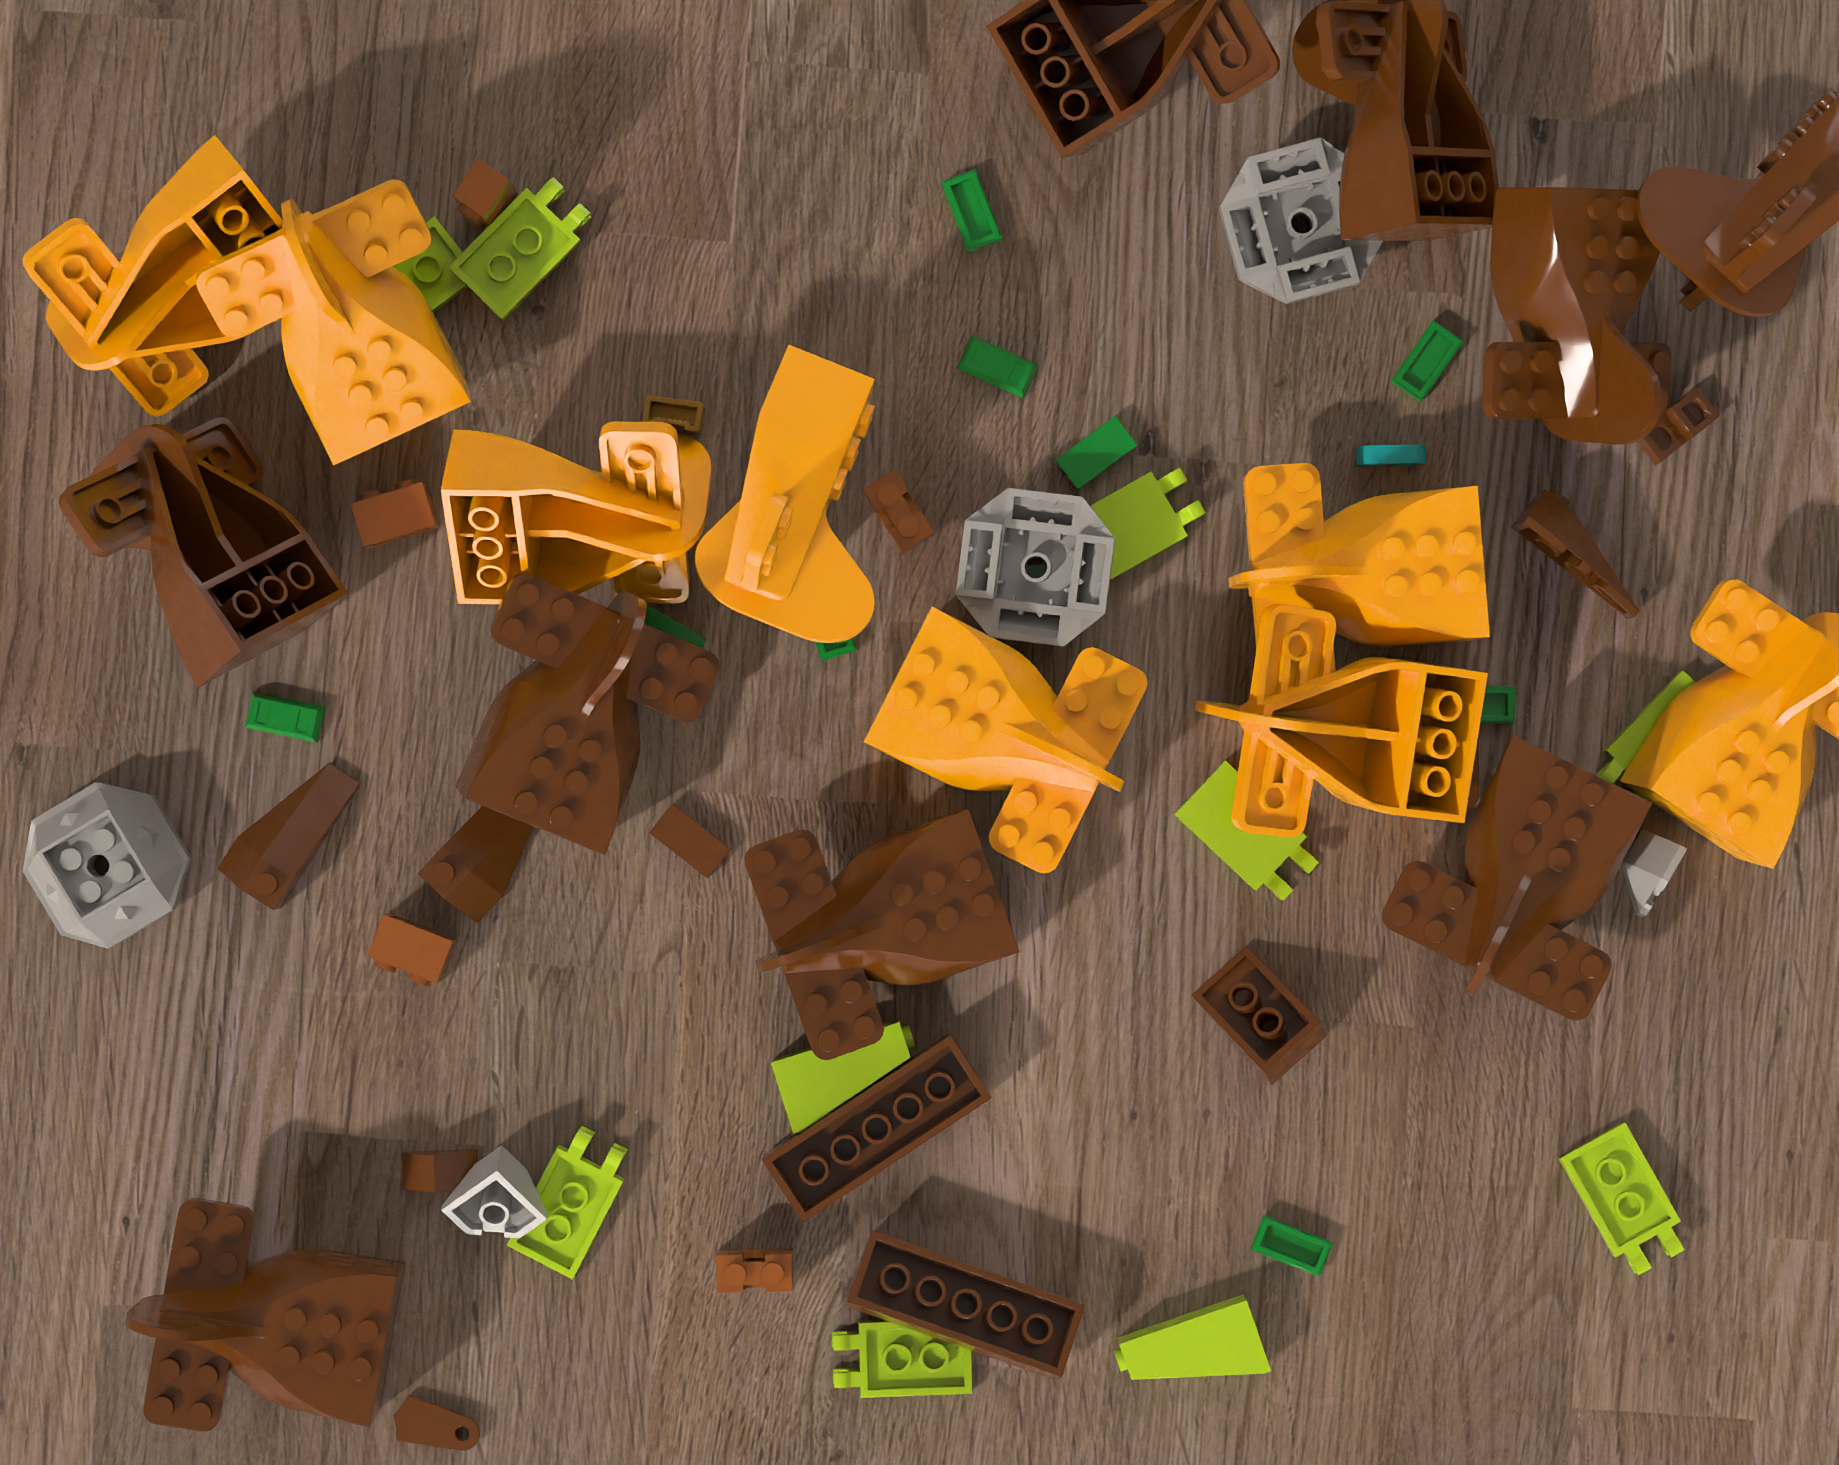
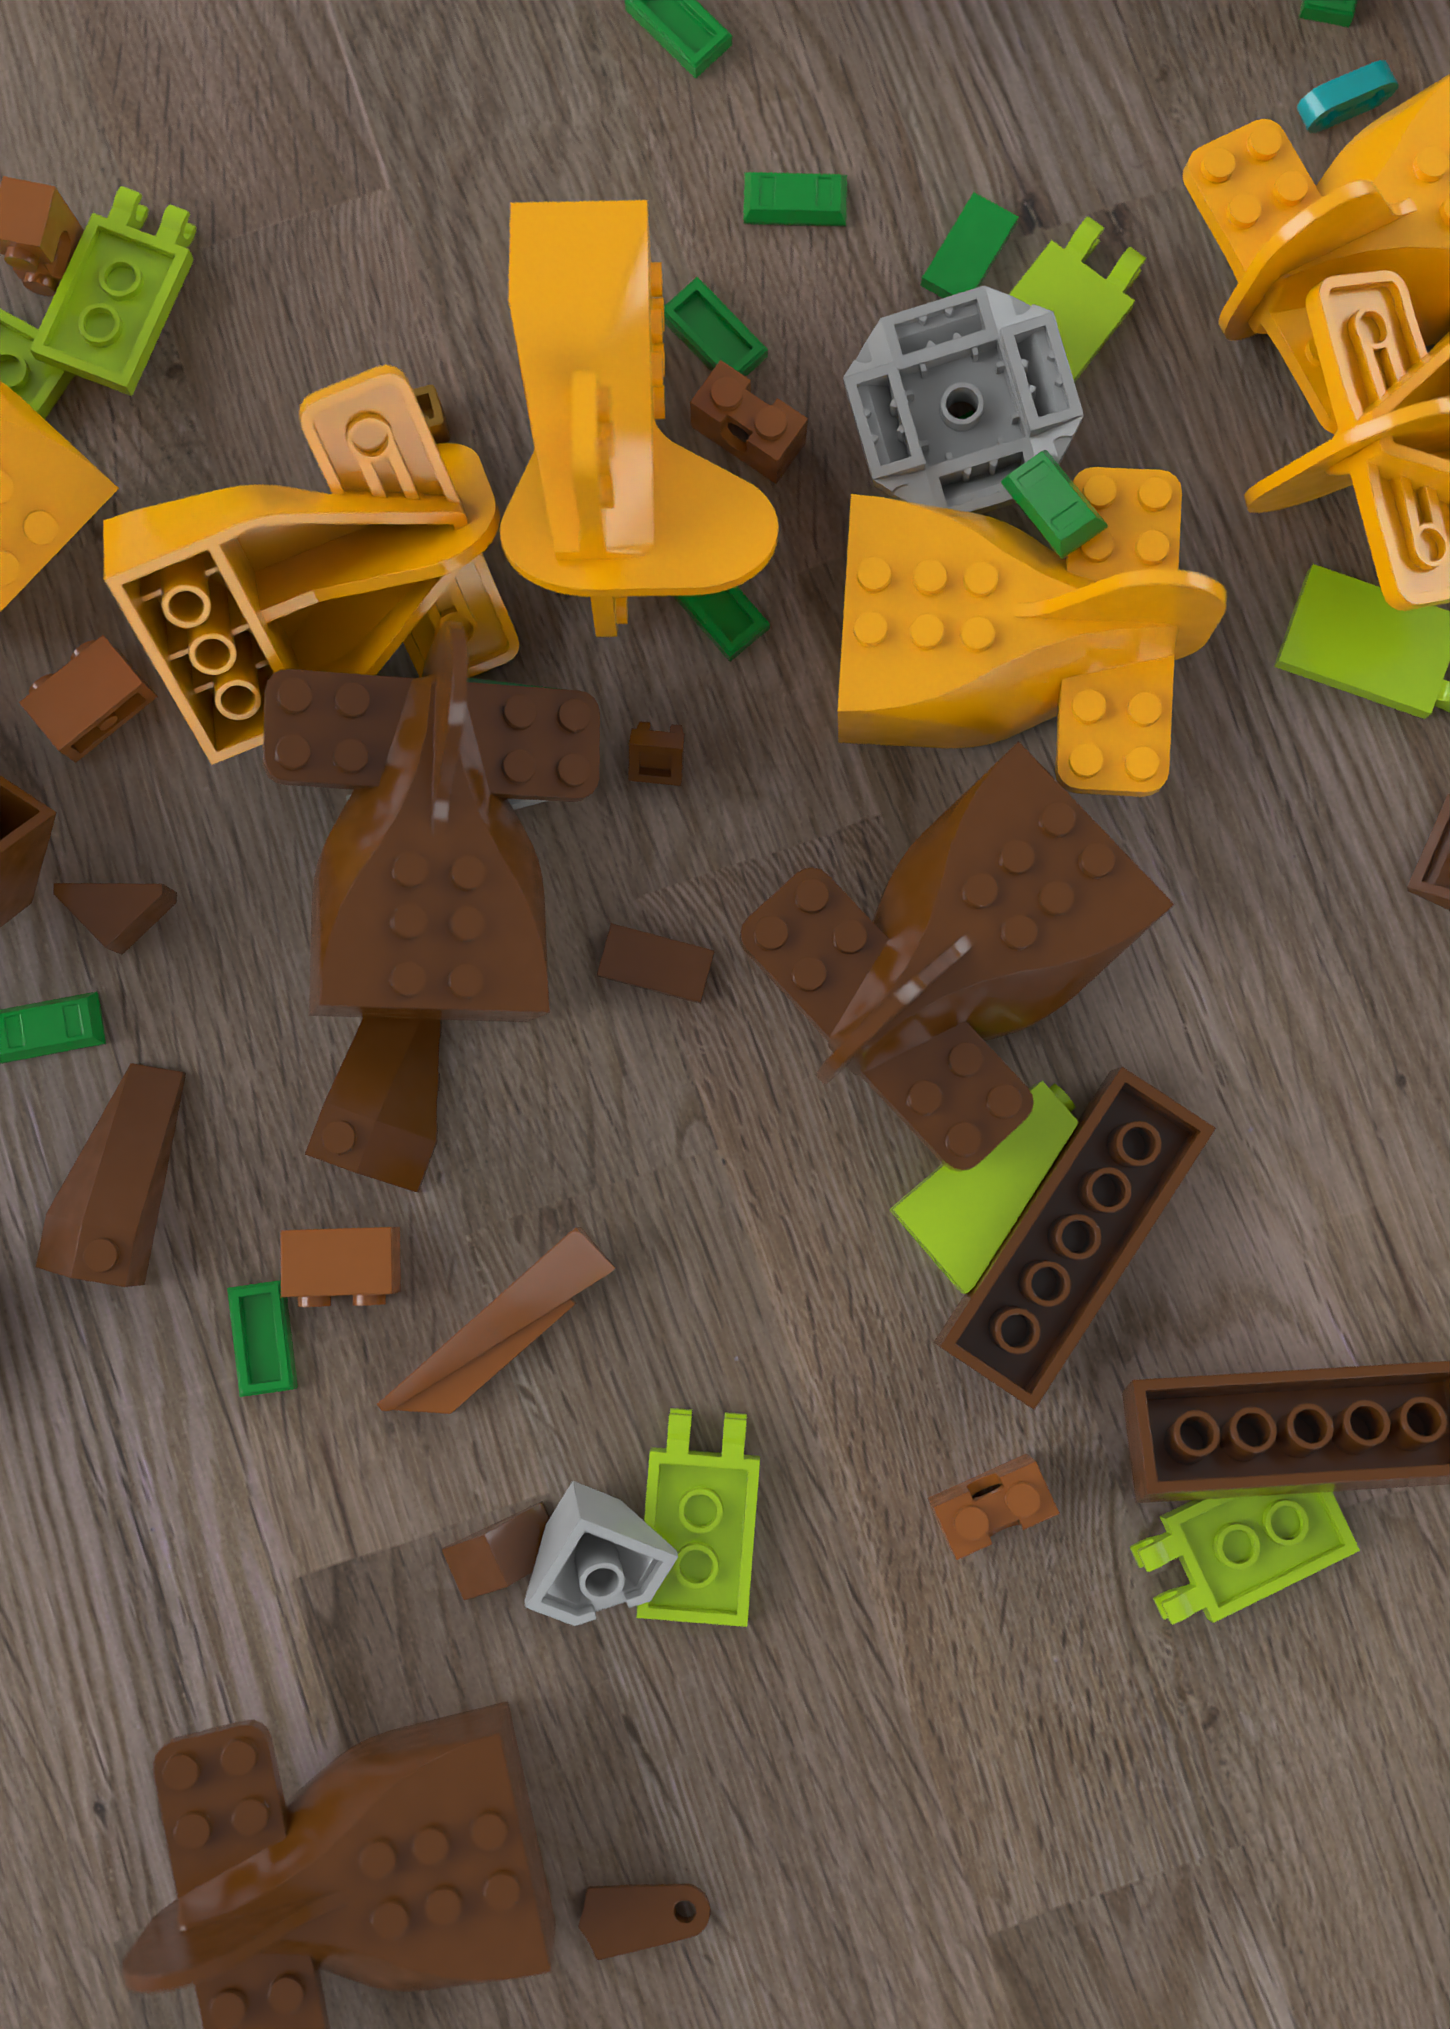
camera: 20 degrees left, 5 degrees down
(343, 973) = (262, 1339): none -> green tile
(357, 663) = (116, 911): none -> reddish brown slope
(496, 1032) = (502, 1328): none -> dark orange wedge
(745, 707) = (656, 755): none -> reddish brown tile
(903, 437) = (712, 329): none -> green tile
(1060, 663) = (1053, 504): none -> green tile

